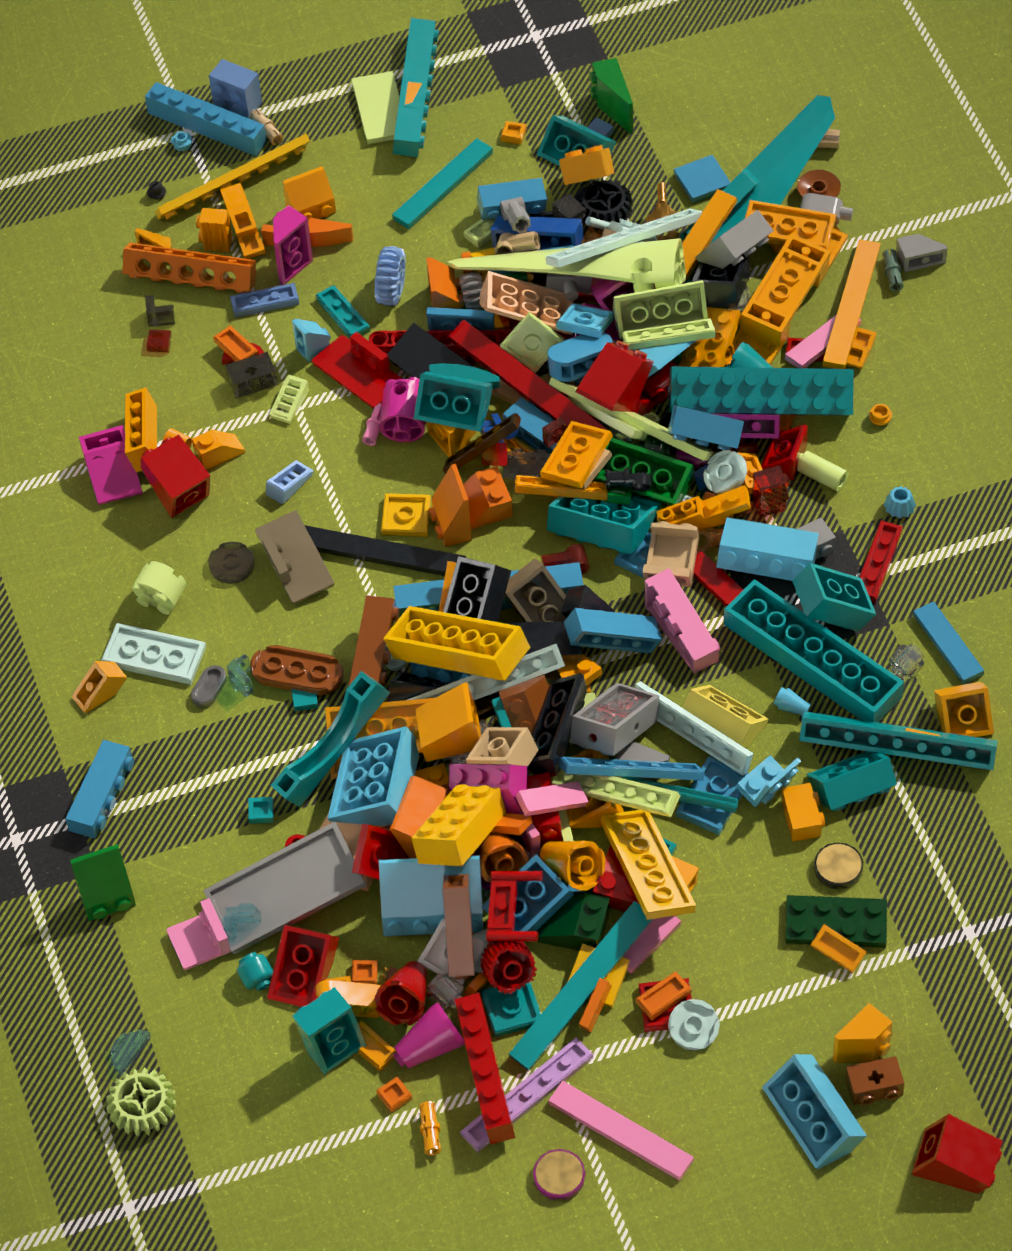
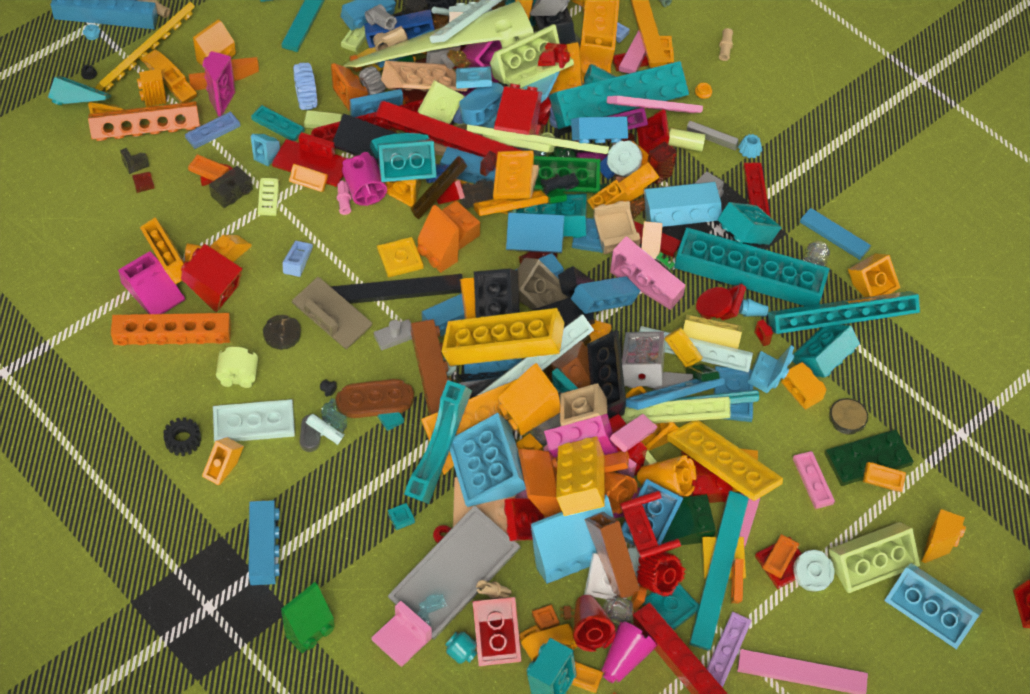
camera: 30 degrees left, 0 degrees up
(68, 657) = (179, 427): none -> black tyre
(111, 522) = (139, 327): none -> orange brick
(121, 209) = (69, 91): none -> teal slope
(223, 686) = (325, 429): none -> light aqua axle
(251, 641) = (328, 387): none -> black piece
(317, 921) = (493, 589): none -> tan axle
(344, 389) = (308, 177): none -> light orange tile
(350, 603) = (394, 334): none -> light grey tile
(391, 320) = (316, 119): none -> yellowish green tile
(567, 532) = (535, 232): none -> dark azure tile
(581, 291) = (458, 58): none -> clear yellow plate
(675, 722) = (683, 347): none -> yellow tile
(681, 321) = (547, 58): none -> red tile
(683, 758) = (702, 372): none -> dark green tile
(695, 318) = (561, 53): none -> red bracket
(705, 615) = (665, 262): none -> green tile
(708, 583) = (652, 238): none -> tile
(745, 681) = (714, 303): none -> red tile
(754, 925) = (813, 480): none -> bright pink tile
(769, 686) = (737, 293): none -> red tile
(773, 1033) = (874, 556): none -> yellowish green slope
(788, 734) = (763, 332): none -> red plate
(796, 416) = (654, 104): none -> bright pink tile
(811, 309) = (622, 32): none -> light blue plate
(858, 475) = (714, 135): none -> light grey tile
(883, 1072) = (963, 566): dark orange brick -> none
(942, 362) = (726, 44): none -> tan pin

